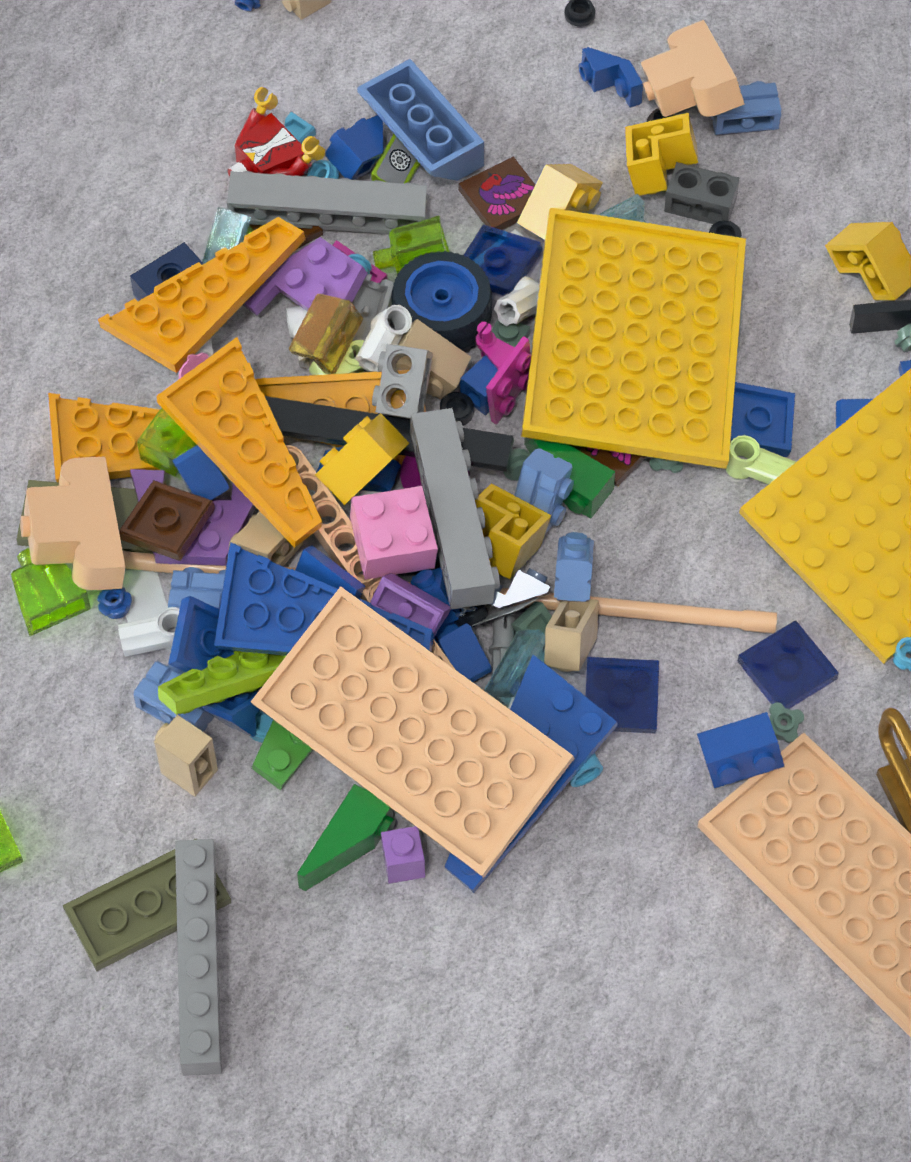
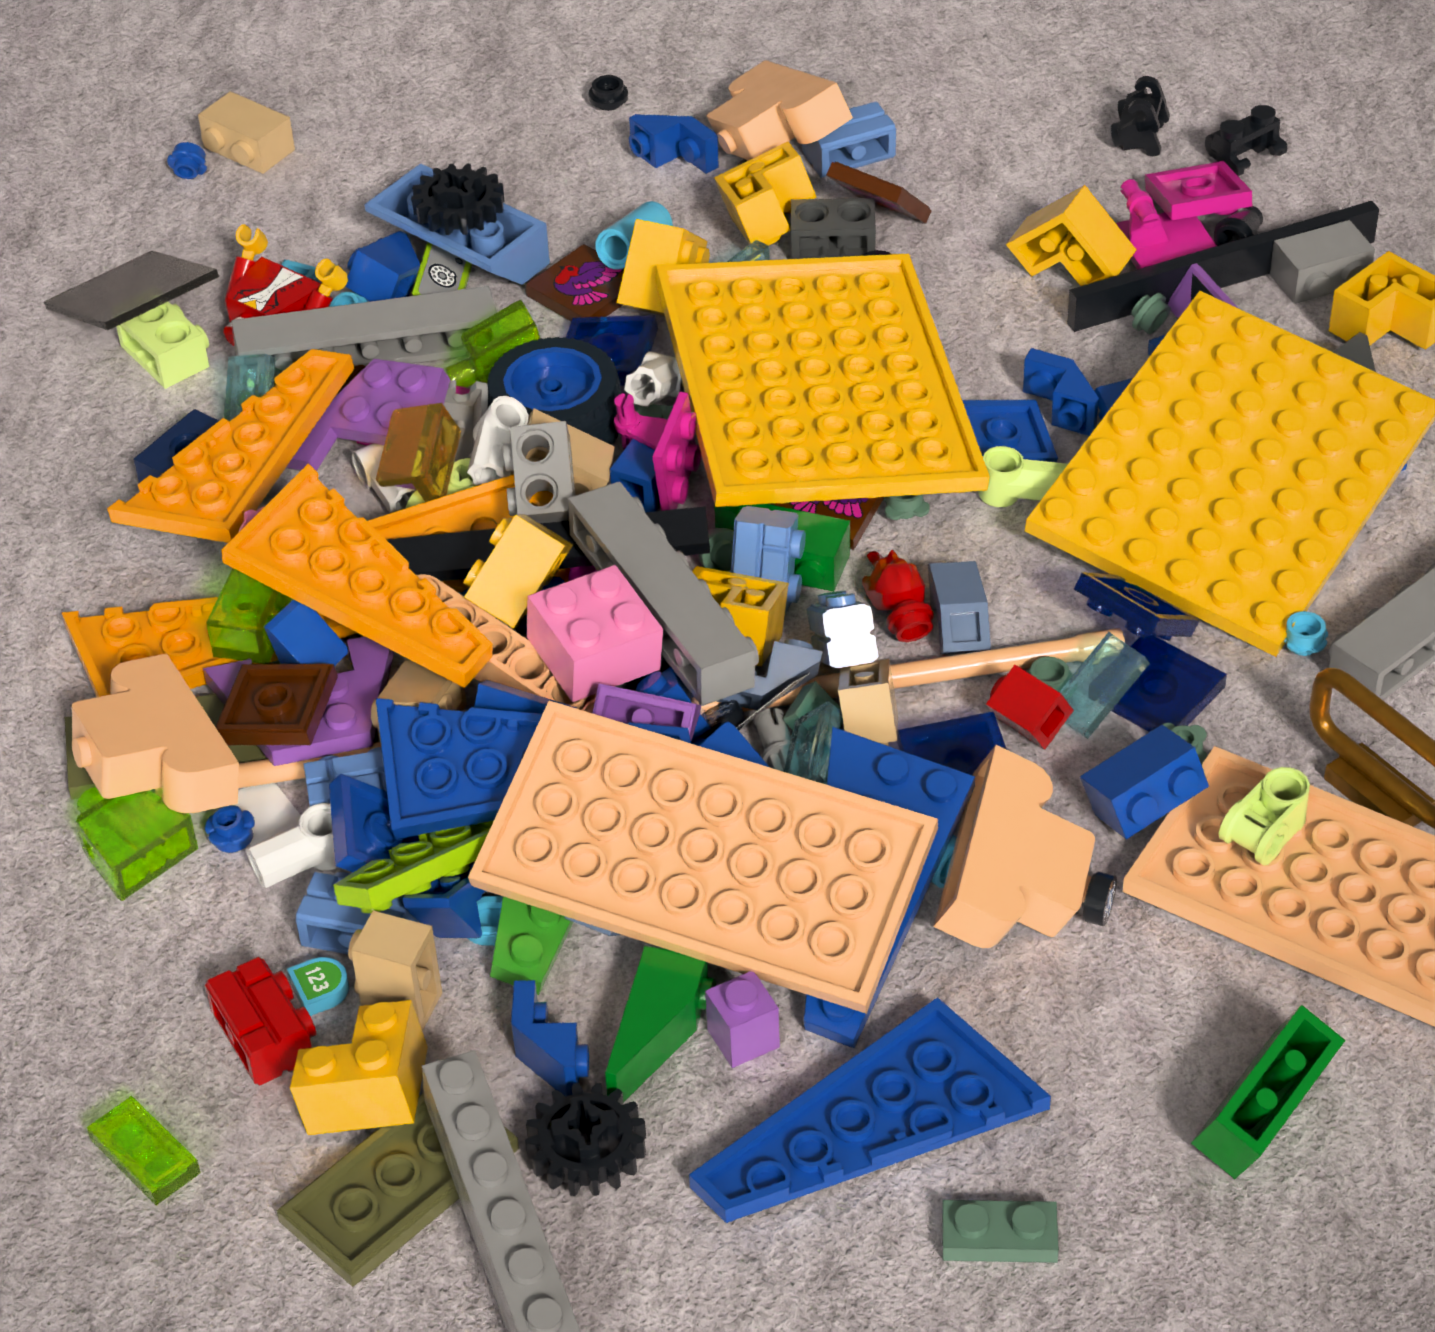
camera: 15 degrees left, 15 degrees down
(91, 762) = (260, 1019): none -> red brick
(137, 742) = (319, 983): none -> tile
(146, 830) = (368, 1080): none -> yellow brick
(170, 116) = (130, 289): none -> clear smoke piece
(182, 166) = (165, 344): none -> yellowish green brick
(257, 906) = (560, 1149): none -> black gear
(272, 840) = (546, 1047): none -> blue slope
(423, 107) = (458, 199): none -> black gear
(481, 945) = (892, 1101): none -> blue wing
(517, 1058) = (1000, 1231): none -> sand green plate
(561, 151) = (614, 242): none -> medium azure pin
(625, 785) = (1013, 857): none -> light nougat brick
(630, 529) = (892, 581): none -> red piece
(631, 564) = (910, 620): none -> red plate
(670, 562) = (960, 607): none -> sand blue slope
(677, 831) = (1099, 898): none -> black tile
(685, 663) = (1029, 706): none -> red brick
(711, 641) = (1051, 671): none -> sand green plate
(728, 1016) = (1268, 1092): none -> green brick
(741, 658) = (1101, 683): none -> clear light blue tile
(746, 171) = (885, 193): none -> reddish brown tile
(793, 601) = (1144, 612): none -> clear blue plate
(805, 808) = (1268, 814): none -> yellowish green piece
(819, 403) = (1063, 383): none -> blue slope

